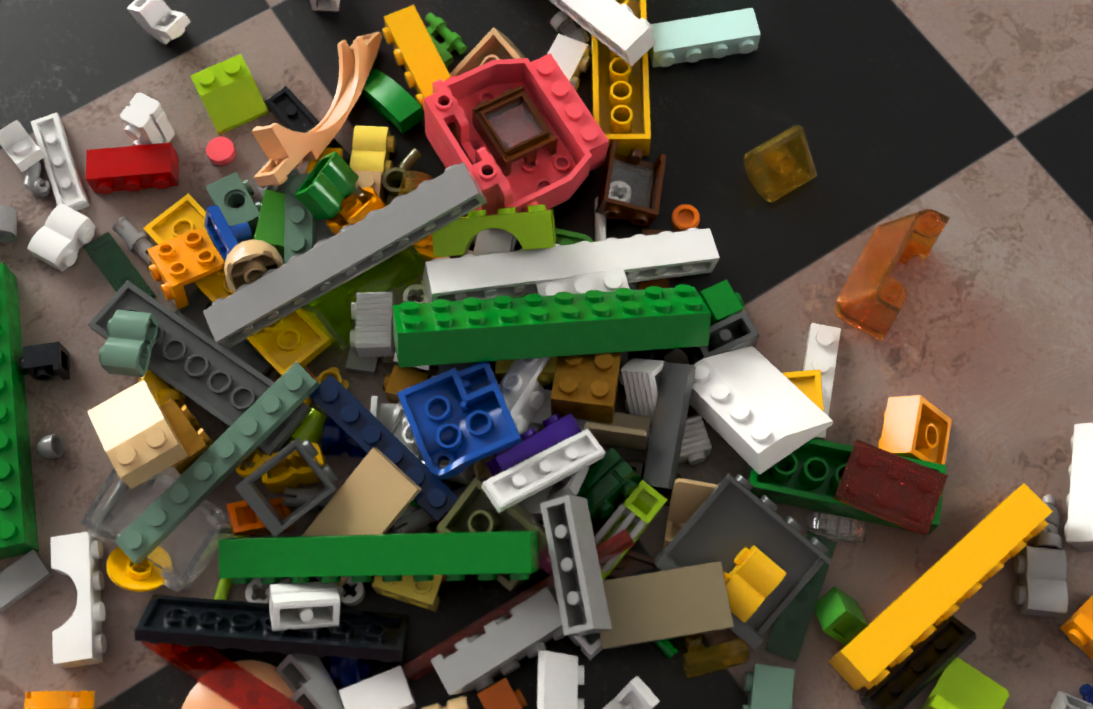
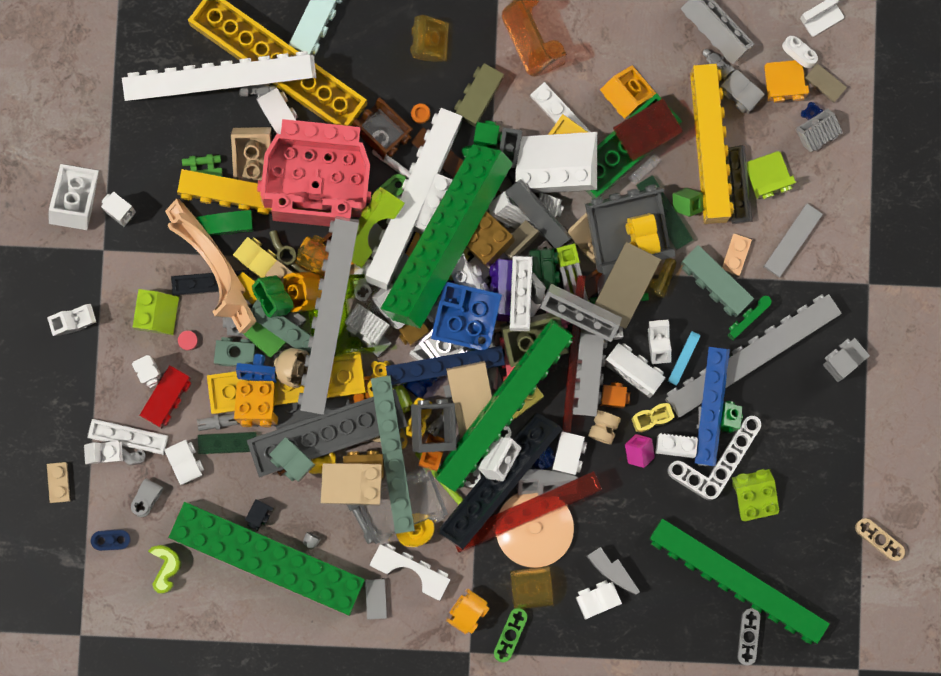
camera: 60 degrees left, 15 degrees up
(512, 128) = (312, 172): reddish brown window -> none
(763, 264) = (479, 94): none -> olive brick

